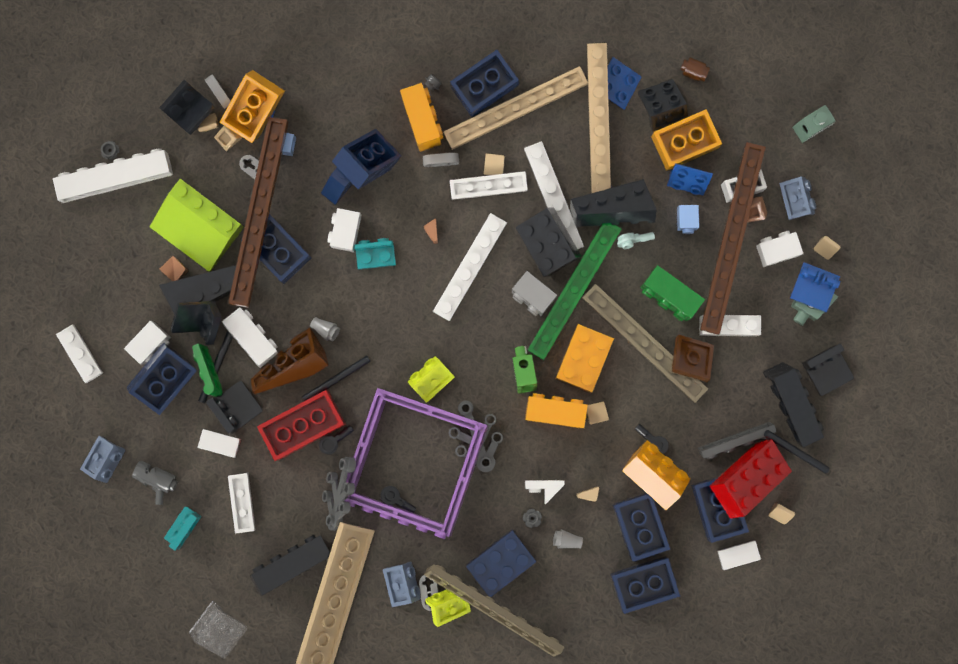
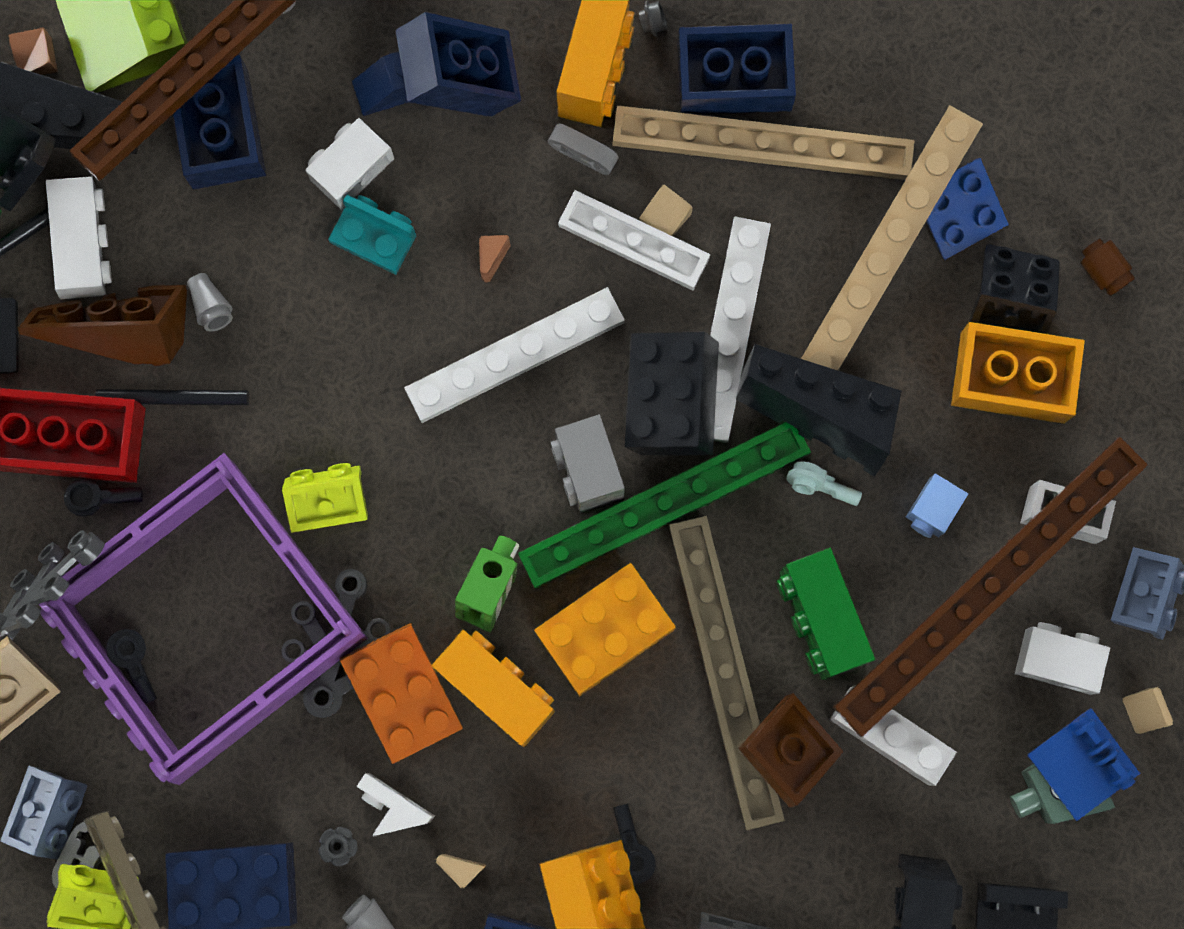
camera: 30 degrees right, 5 degrees down
(517, 439) = (401, 693): none -> orange plate
(597, 413) = (566, 737): tan slope -> none
(689, 179) = (980, 441): blue hinge -> none
(758, 210) = (1064, 568): nougat slope -> none

